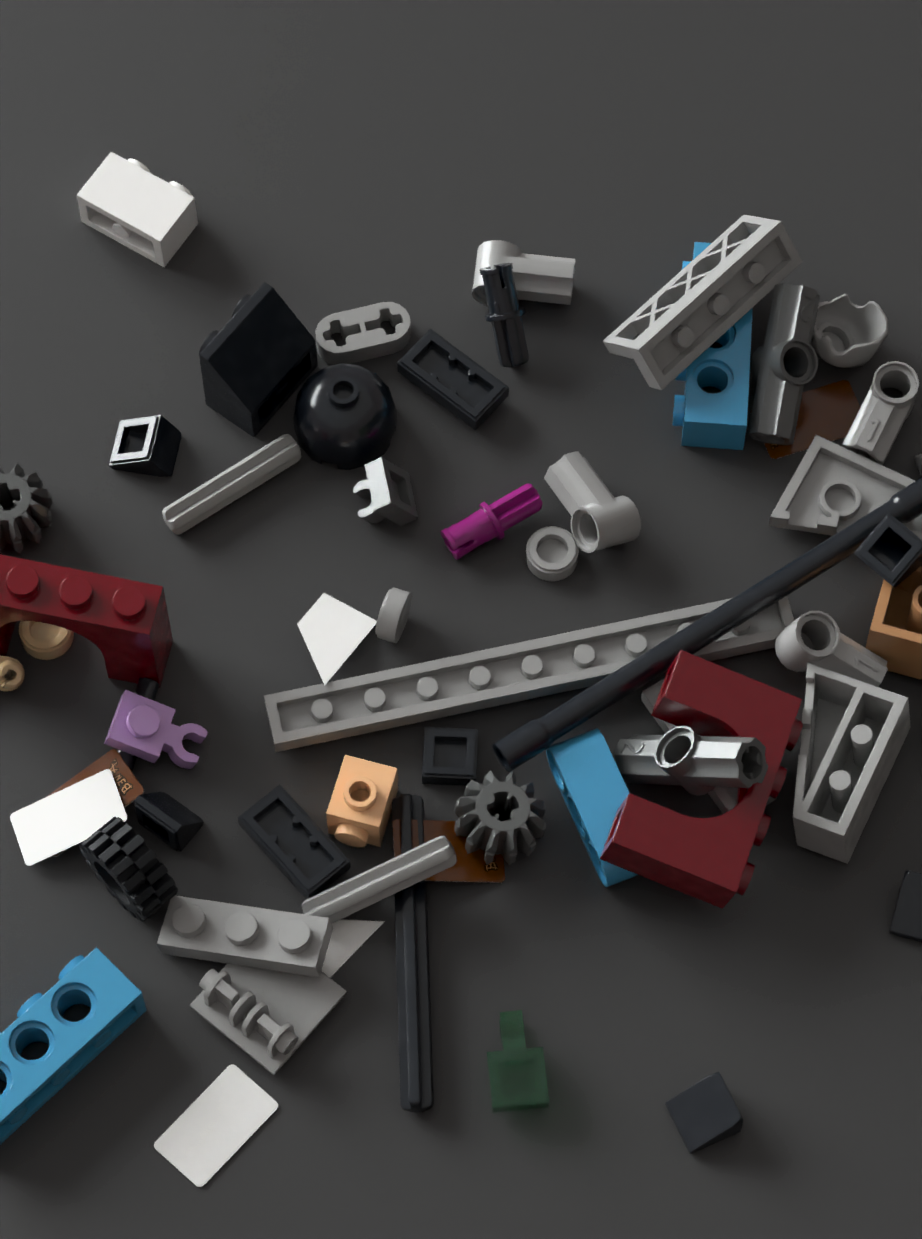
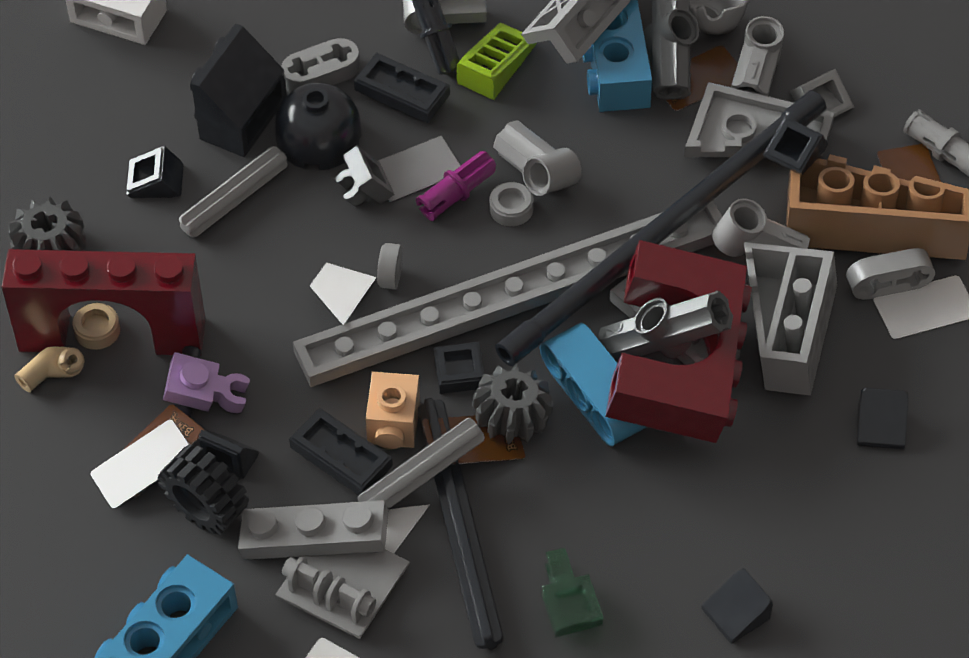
camera: 10 degrees left, 10 degrees down
(454, 485) = (418, 167): none -> light grey sticker
(561, 389) = (491, 82): none -> lime slope

